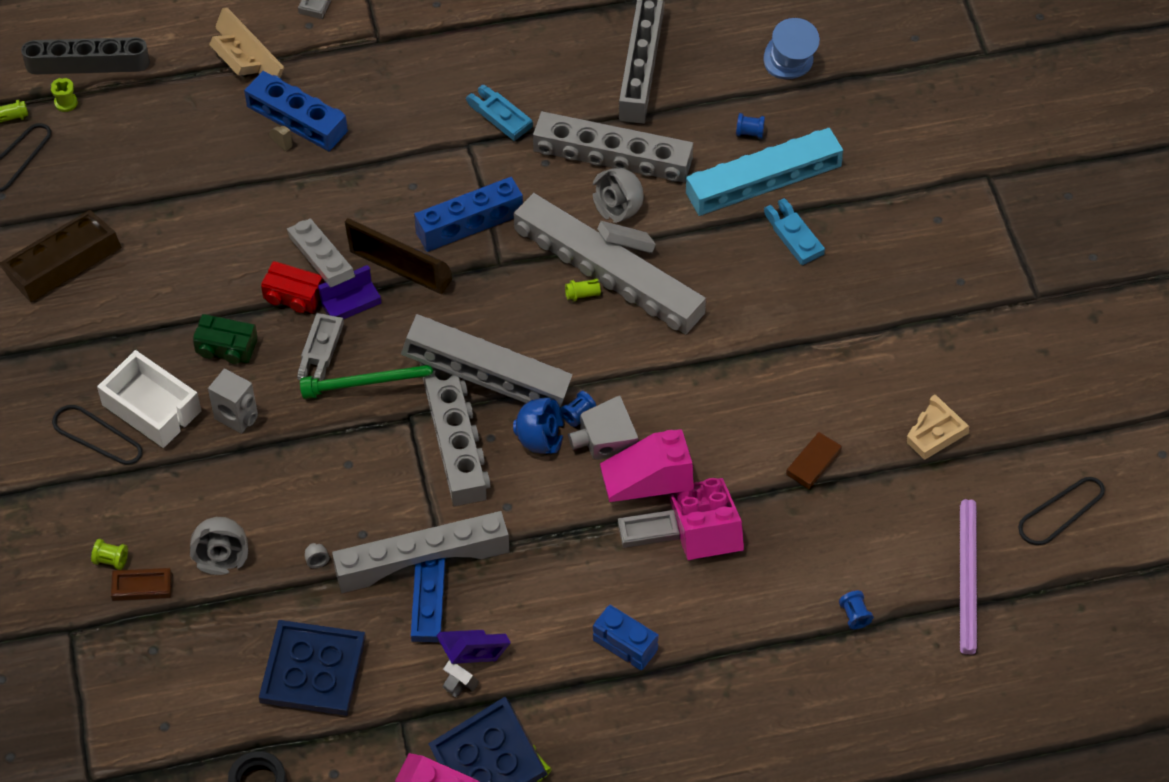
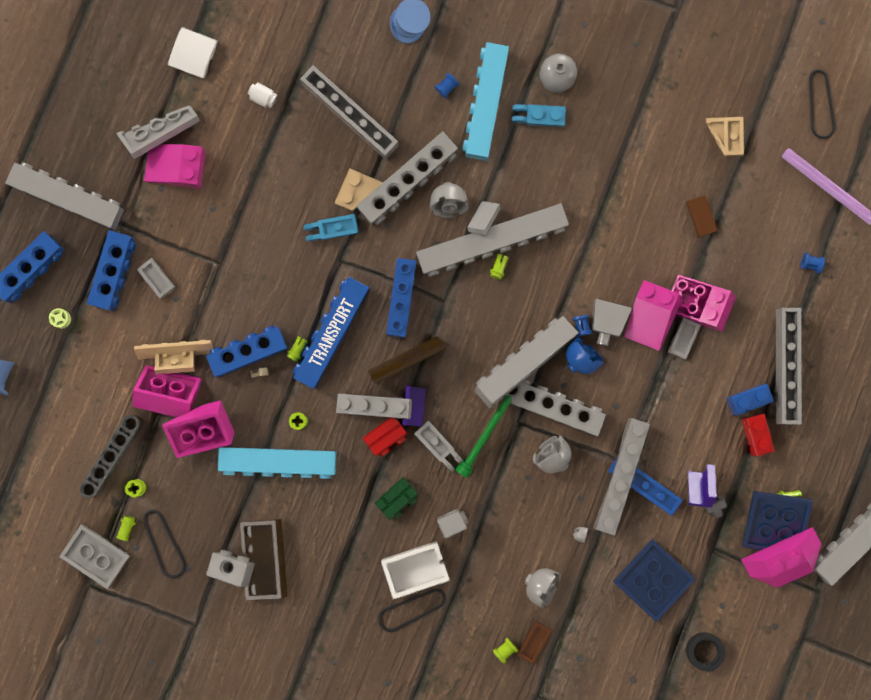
camera: 60 degrees left, 30 degrees up
(28, 223) = (220, 570): none -> light grey brick
(173, 108) = (200, 430): none -> dark pink slope
(188, 204) = (277, 461): none -> medium azure brick
(194, 65) = (166, 393): none -> dark pink slope
(249, 194) = (295, 416): none -> lime bush
(334, 154) = (297, 348): none -> lime pin
(377, 173) = (331, 333): none -> blue brick
(392, 464) = (553, 456): none -> light grey cylinder
(563, 104) = (355, 189): none -> tan wing
(587, 673) = (757, 434): none -> red brick
(700, 653) = (788, 366): none -> light grey brick
(858, 221) = (558, 73): none -> light grey cylinder

